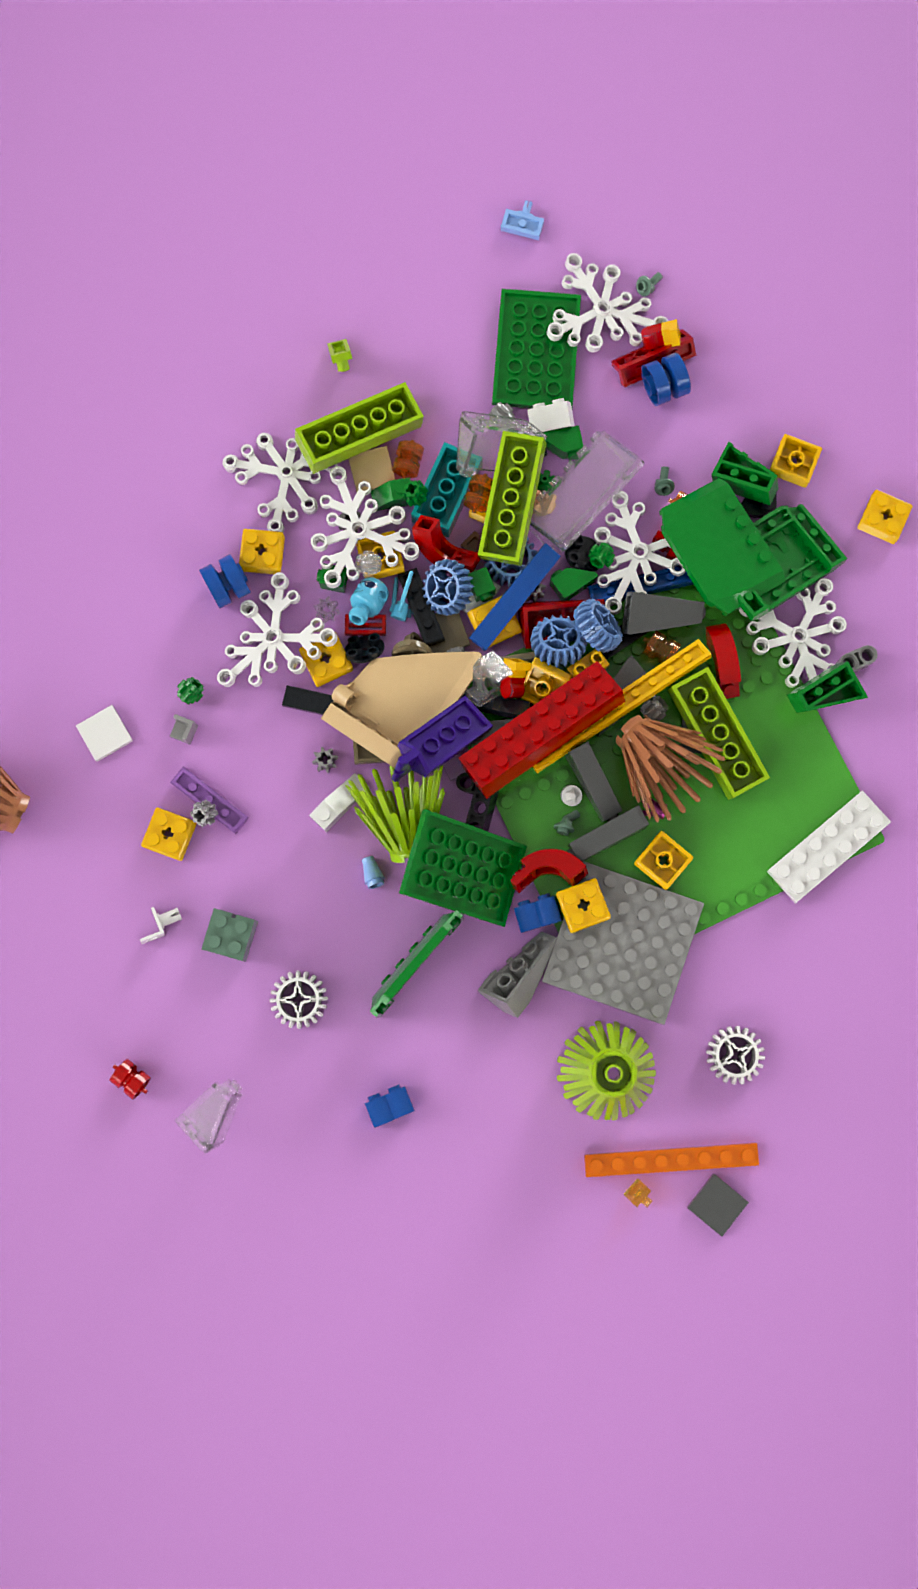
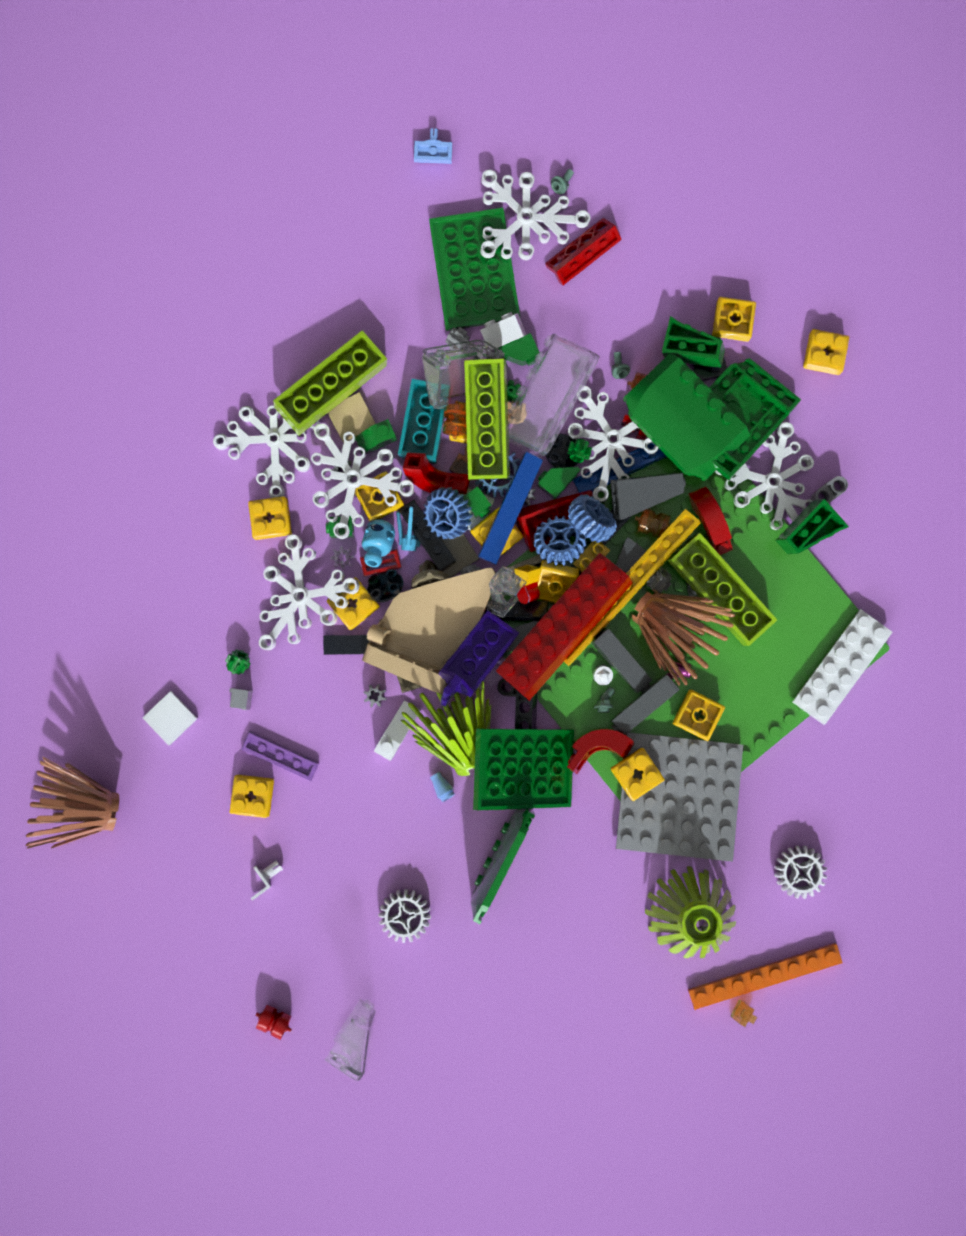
camera: 10 degrees left, 5 degrees up
(204, 813) = (278, 771): light grey gear -> none
(228, 579) = (248, 550): blue wheel -> none
(229, 935) = (329, 875): sand green piece -> none
(340, 354) = (295, 316): lime tile -> none
(368, 563) = (370, 509): clear gear -> none
(390, 1106) = (507, 990): blue brick -> none
(408, 459) = (382, 400): clear orange wheel -> none
(414, 493) = (397, 434): green gear -> none
(517, 981) = (594, 851): light grey wedge -> none
(538, 913) = (598, 789): blue brick -> none
(661, 335) = (586, 229): leg -> none
(666, 379) = (599, 270): blue wheel -> none
(717, 1204) = (814, 1005): dark grey tile -> none

